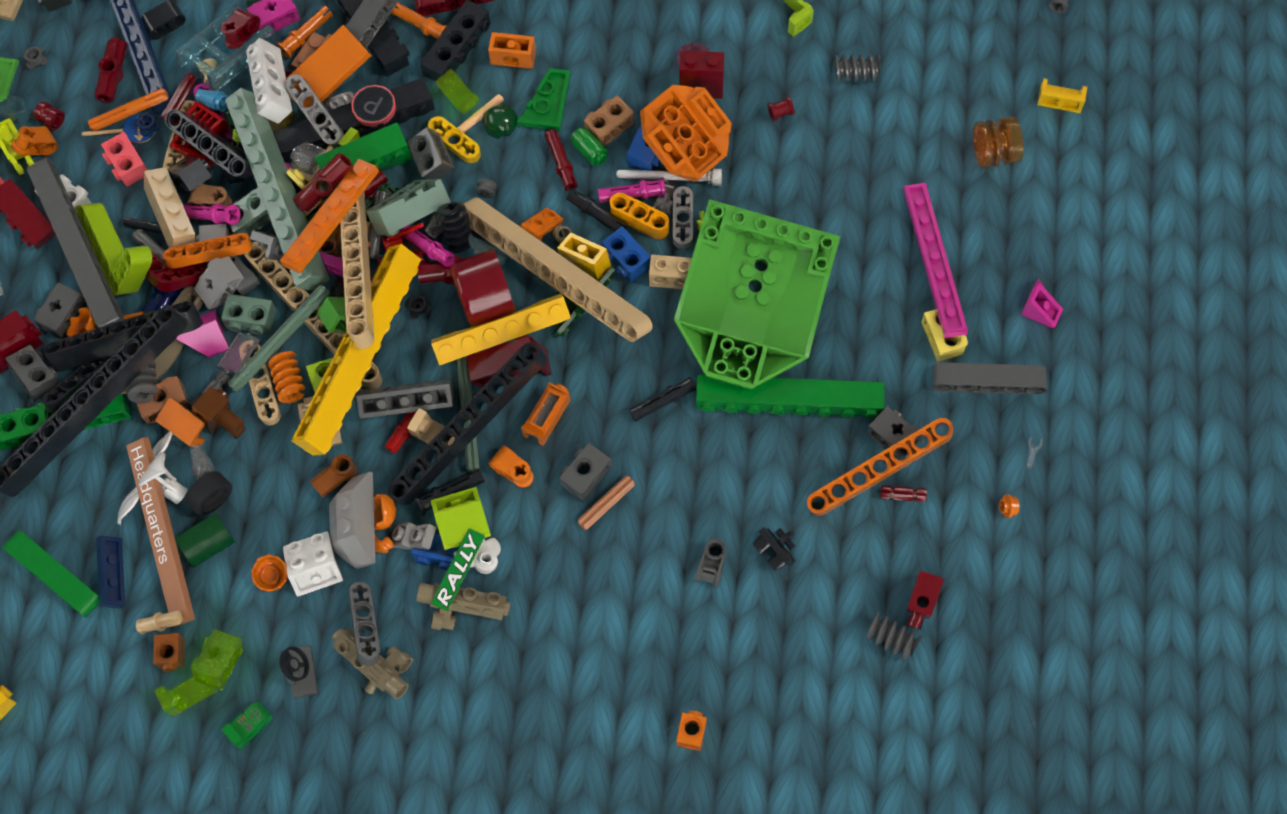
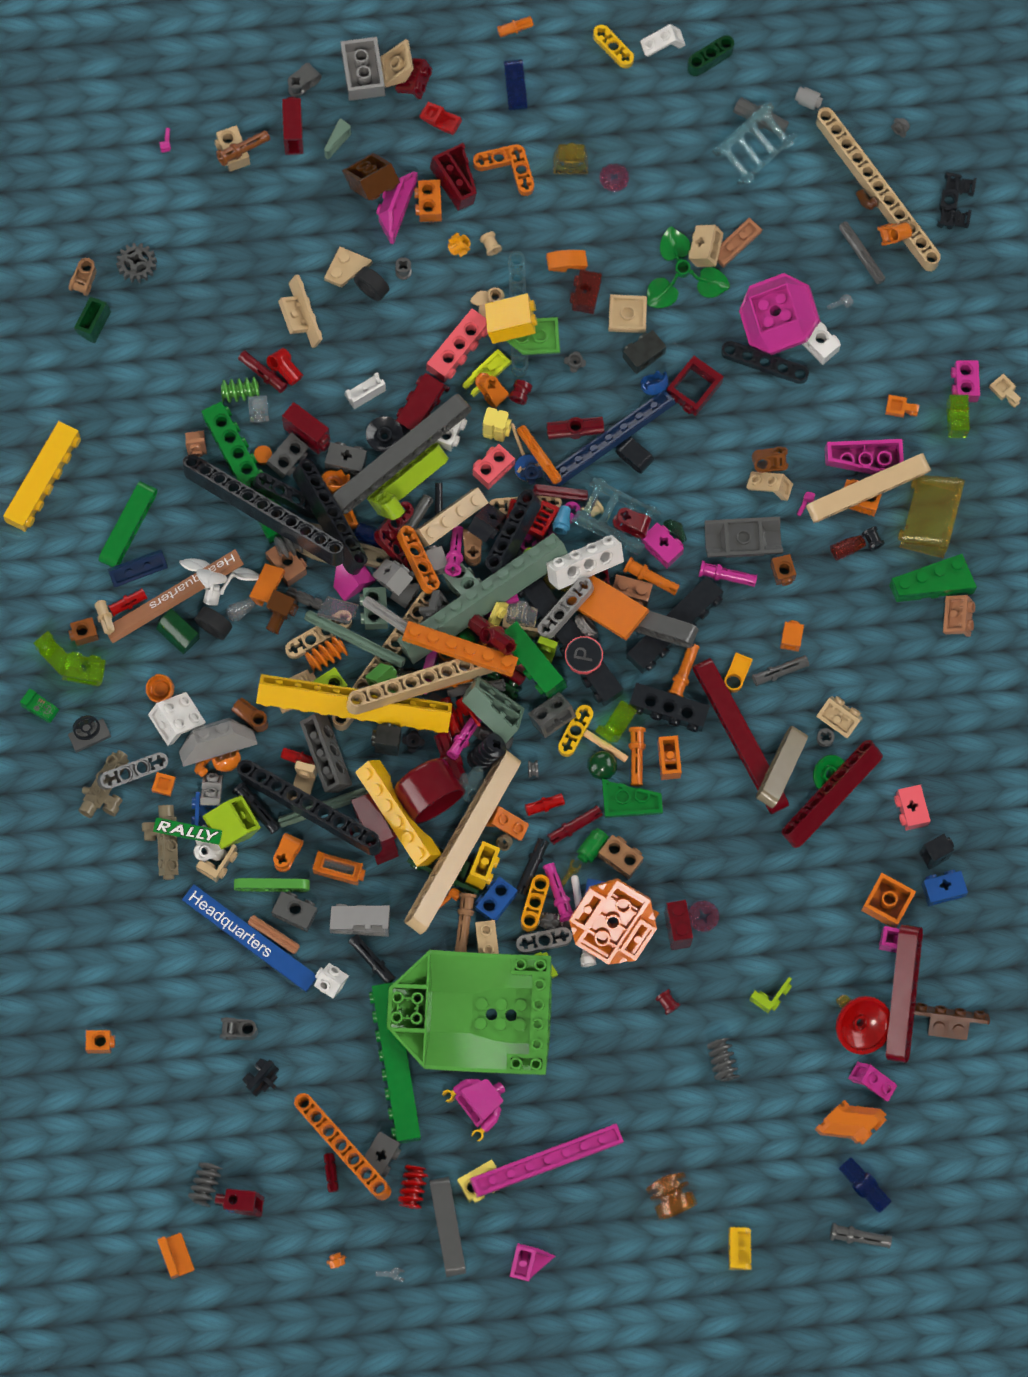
camera: 70 degrees right, 5 degrees up
(20, 400) = (262, 454): none -> orange tile
(39, 258) = (382, 426): none -> black dish
(77, 142) = (496, 424): none -> light yellow brick
(148, 591) = (127, 602): none -> red pin
(262, 296) = (385, 613): none -> light grey axle
(390, 593) = (163, 784): none -> orange plate
(409, 327) = (386, 739): none -> pearl dark grey brick
(490, 82) = (637, 746): none -> orange pin
(511, 558) = (209, 870): none -> tan bracket
(529, 185) = (544, 804): none -> red pin
(546, 492) = (271, 885): none -> bright green beam
(603, 531) = (249, 938): none -> blue tile
(609, 174) = (572, 870): none -> clear yellow hand
(614, 398) = (360, 920): none -> light grey wedge
(630, 290) = (465, 912): none -> medium nougat pin
(678, 446) = (330, 980): none -> white brick
(854, 314) = (479, 1101): none -> dark pink torso
(937, 404) = (412, 1187): none -> red piece
(971, 690) = (176, 1255): none -> orange panel

